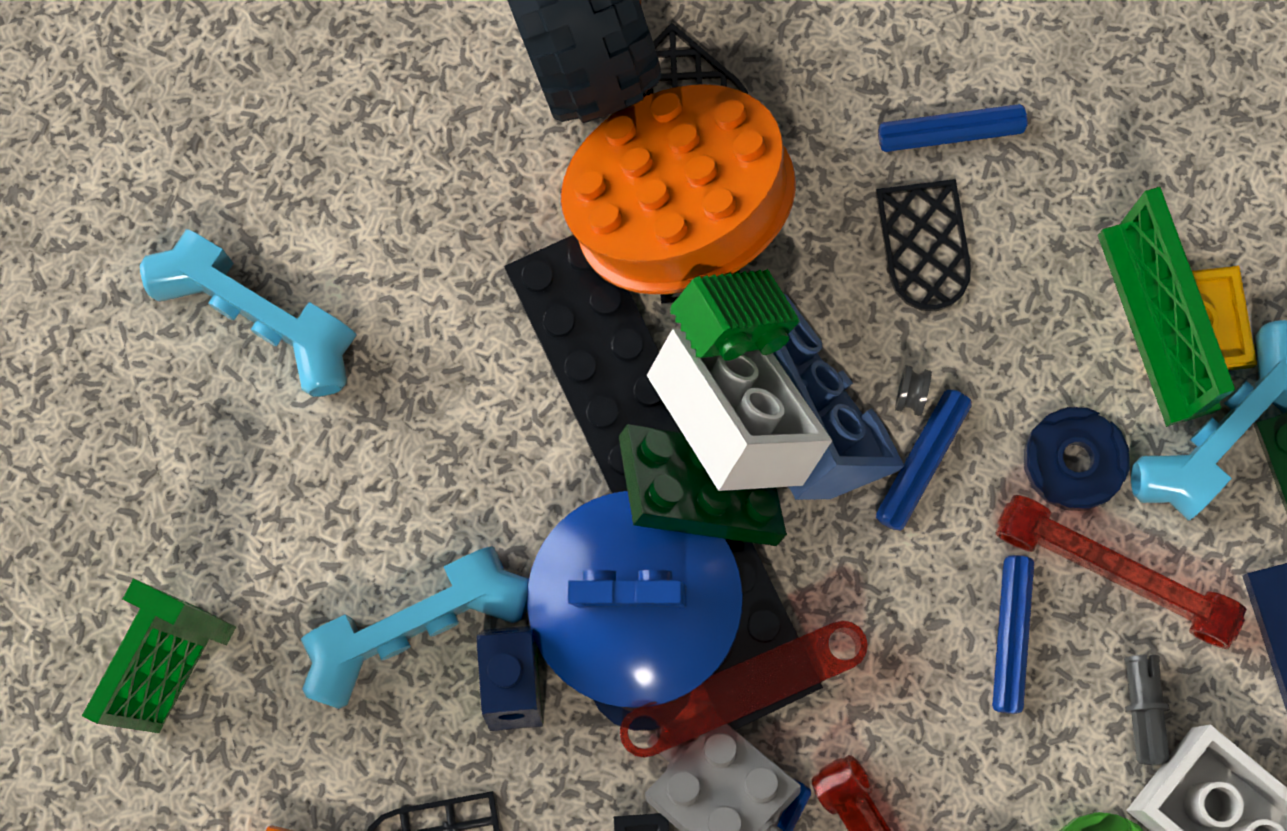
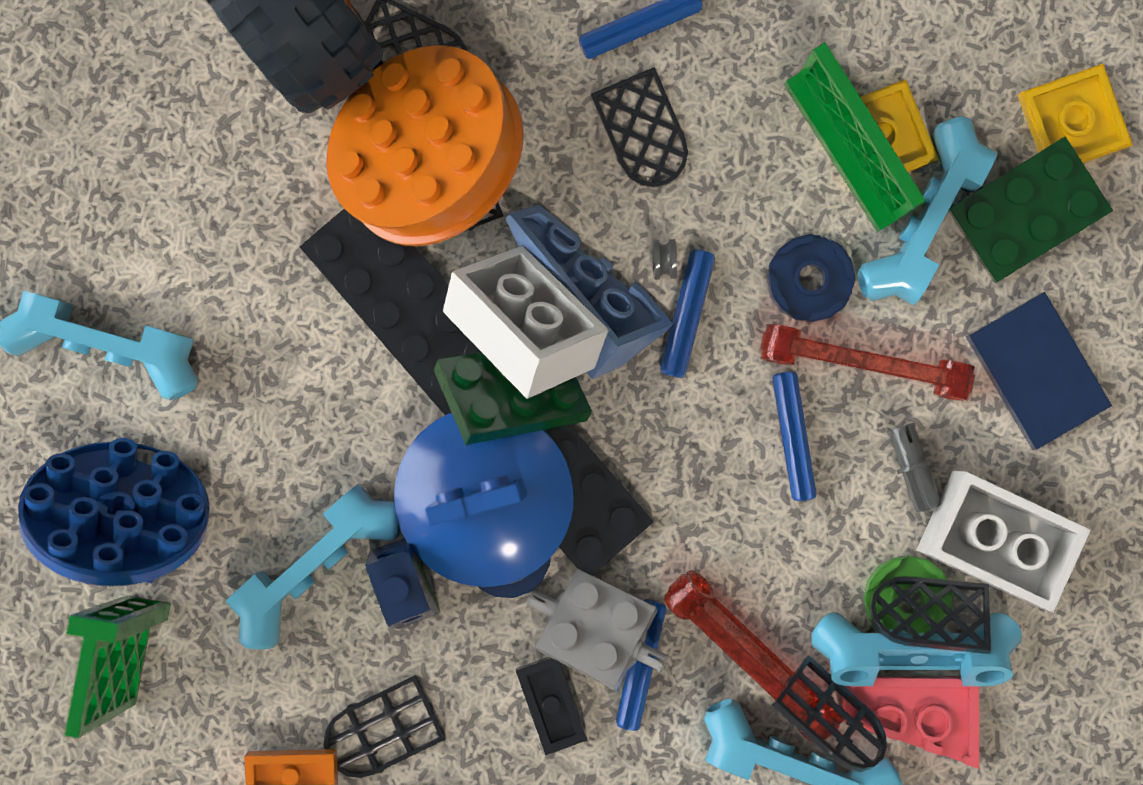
camera: 20 degrees left, 10 degrees up
(206, 502) = (112, 517): none -> blue bracket
(734, 314) = (500, 245): green brick -> none
(746, 688) = (592, 543): clear red piece -> none

